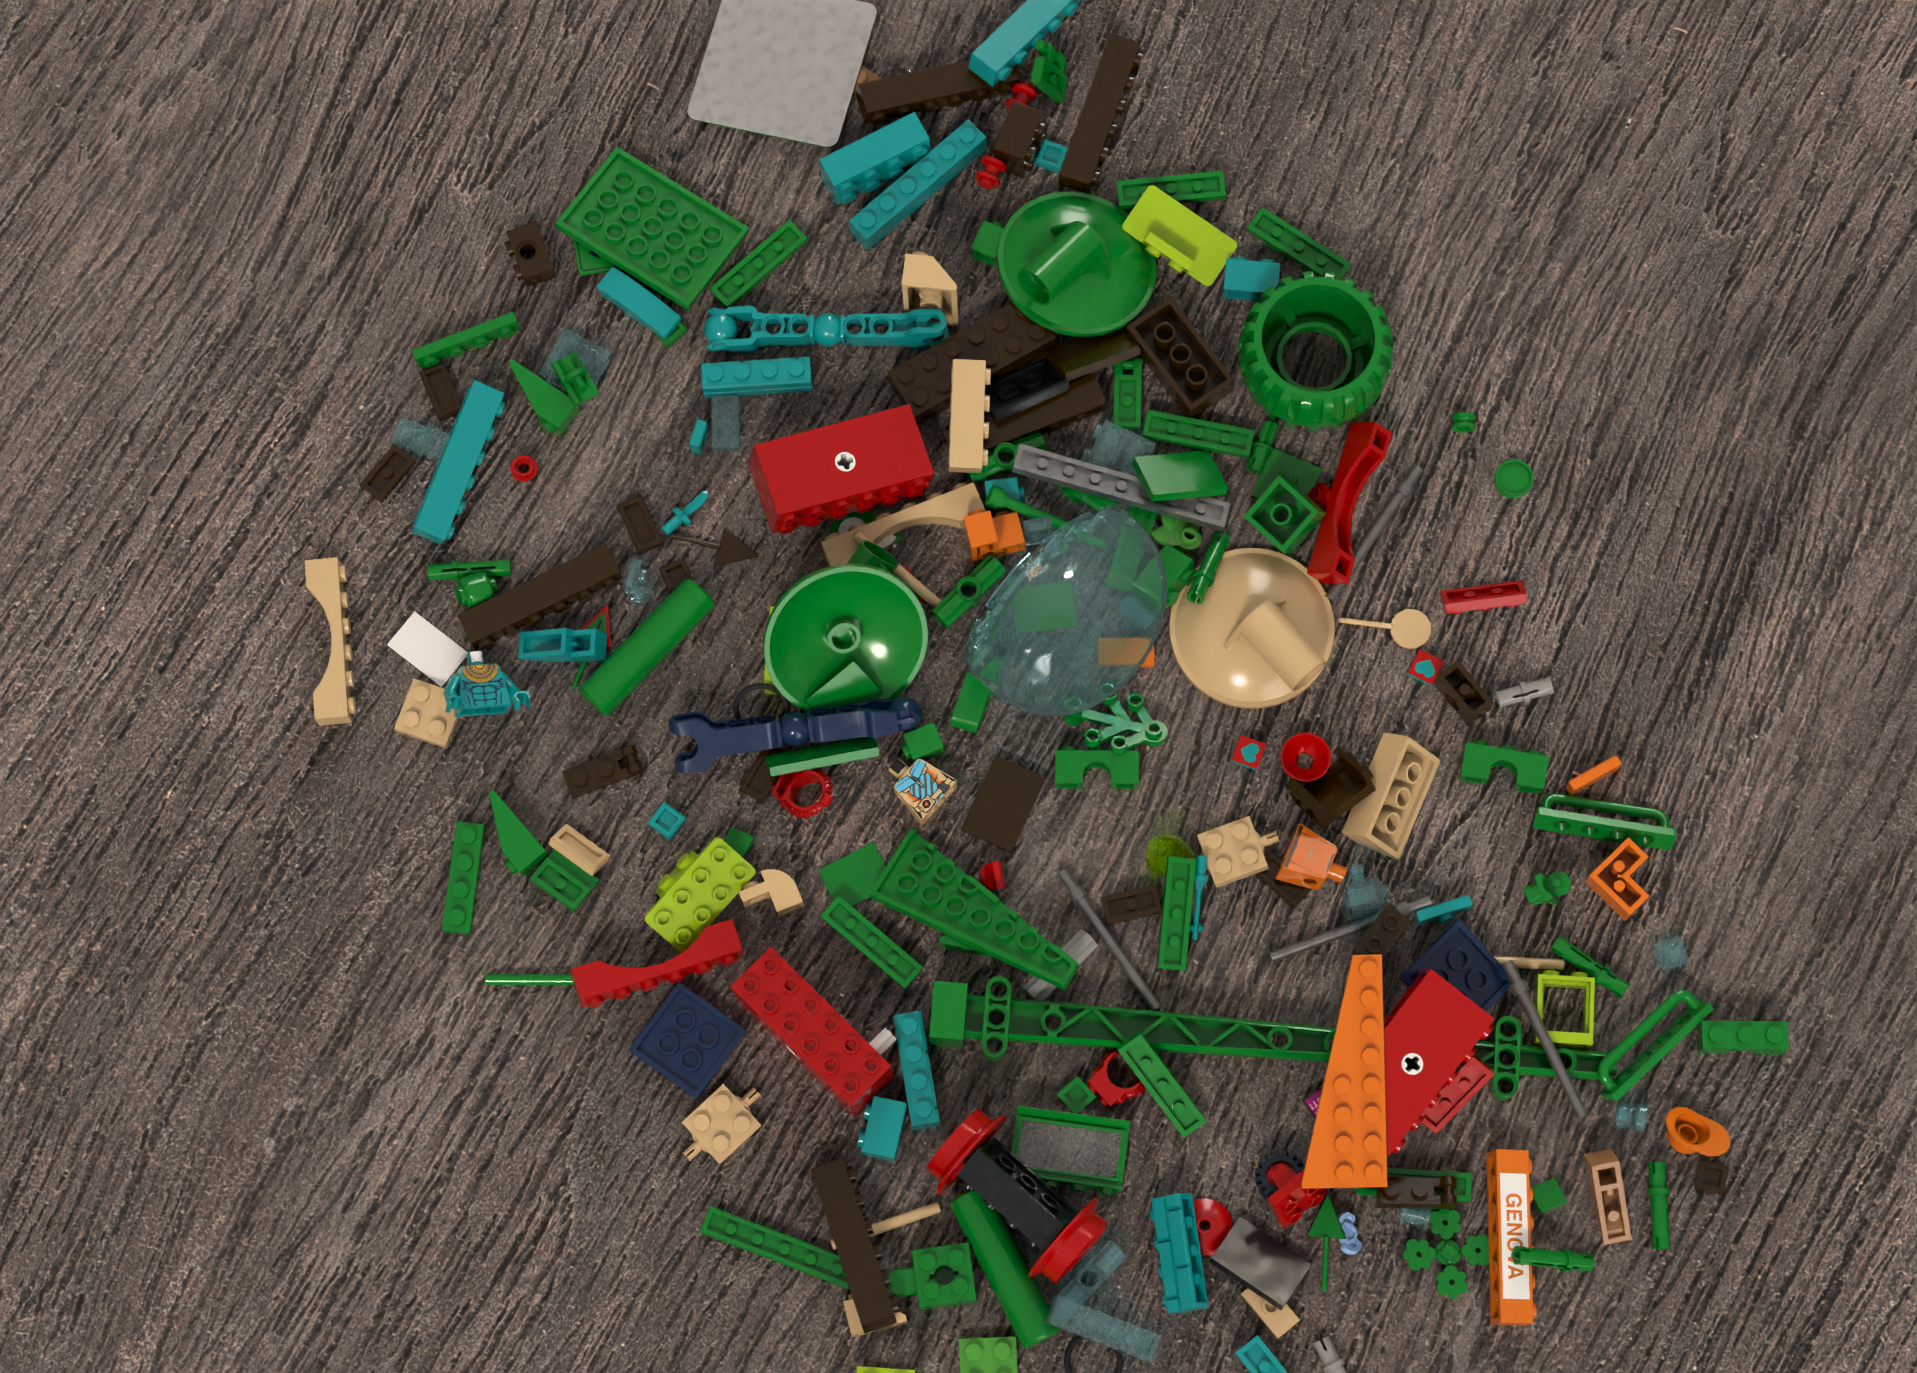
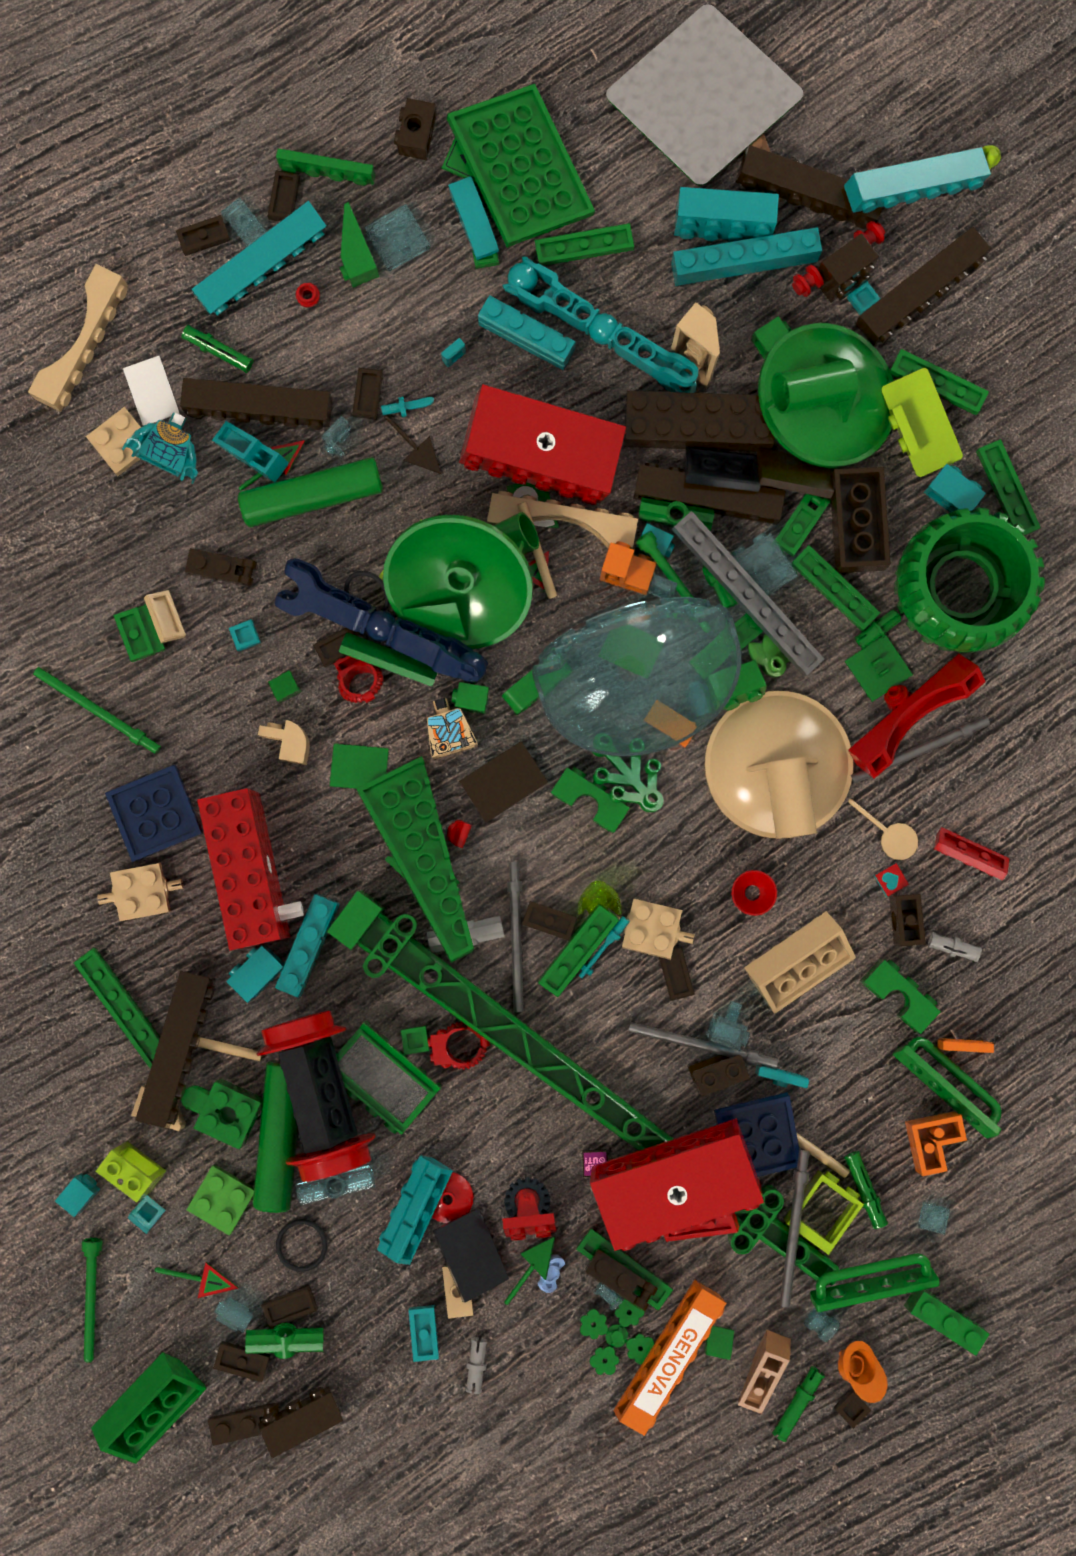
camera: 30 degrees right, 10 degrees up
(463, 878) = (67, 583): green plate -> none
(475, 589) = (211, 366): green head -> none
(516, 842) = (121, 580): green slope -> none
(575, 379) = (385, 247): green hips -> none
(602, 981) = (216, 754): red arch -> none
(675, 573) = (369, 448): dark brown tile -> none
(697, 892) = (230, 705): lime bracket -> none
(725, 423) = (480, 354): clear light blue plate -> none
(871, 942) = (337, 825): green plate -> none
(967, 416) = (665, 463): tan brick -> none
(980, 579) = (597, 598): green piece -> none
(1049, 71) = (905, 227): green plate -> none
(1103, 1329) = (320, 1231): clear light blue plate -> none
(1161, 1084) = (482, 1075): green plate -> none
(1179, 475) = (799, 613): green tile -> none
(1205, 574) = (768, 703): green pin -> none
(1248, 752) = (713, 859): red tile -> none
(1284, 514) = (860, 694): green brick -> none
(1309, 860) = (705, 974): orange torso -> none
(1334, 793) = (760, 934): dark brown panel -> none
(1351, 1114) = (604, 1205): orange wing -> none
(1463, 422) = (1046, 707): green bush -> none
(1513, 479) = (1055, 775): green piece -> none
(1548, 888) = (873, 1113): green hips -> none
(1563, 1260) = (697, 1400): green pin -> none

